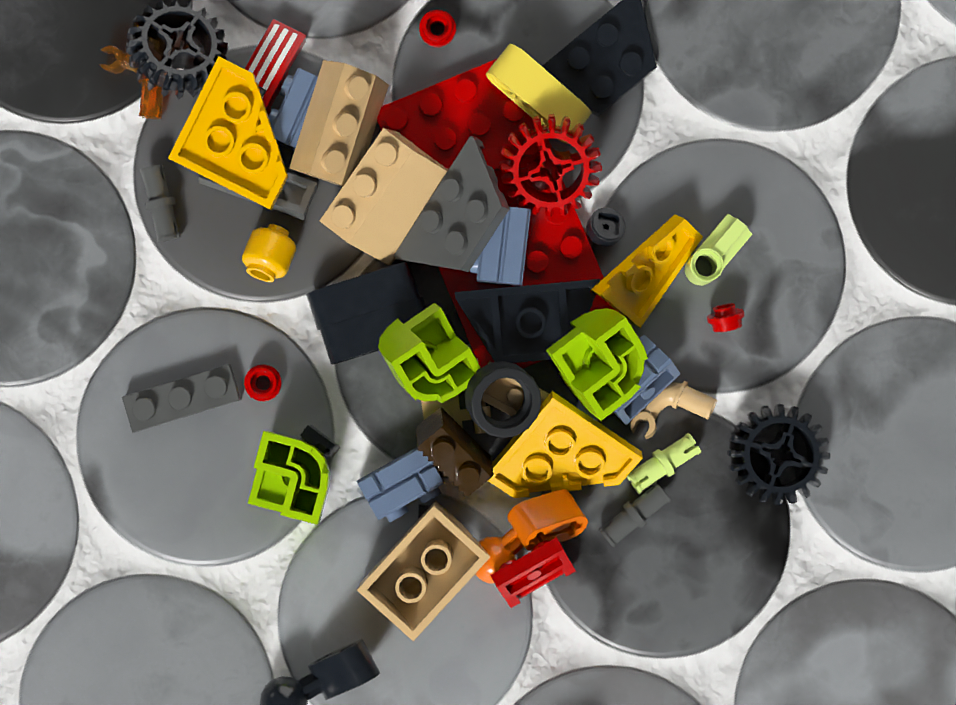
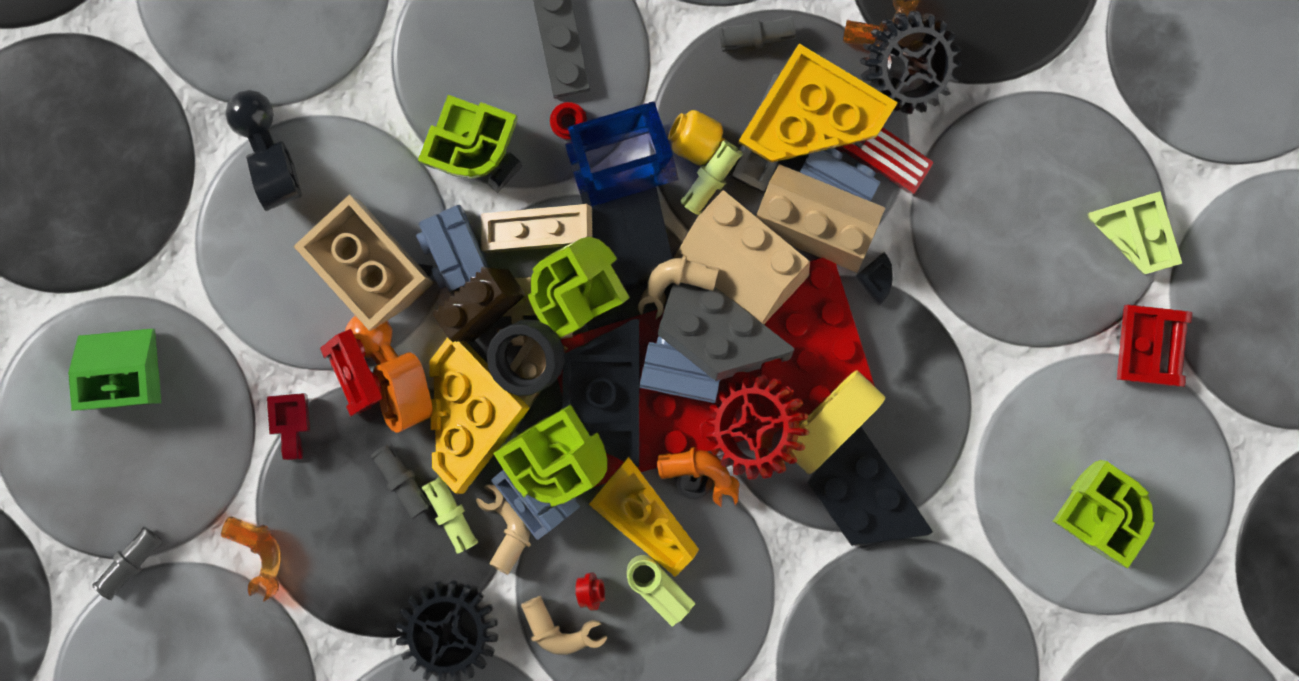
camera: 90 degrees right, 0 degrees up
(307, 234) = (711, 177): none -> yellowish green pin
(315, 315) = (629, 176): none -> clear blue window
(373, 403) = (535, 228): none -> tan plate
(392, 64) = (877, 278): none -> black tile
(404, 259) = (676, 271): none -> tan piece
(434, 17) = (918, 318): red plate -> none
(582, 632) = (288, 417): none -> dark red plate
(591, 222) = (697, 464): none -> orange piece
(709, 647) = (261, 543): none -> clear orange piece
(773, 353) = (550, 637): none -> tan piece

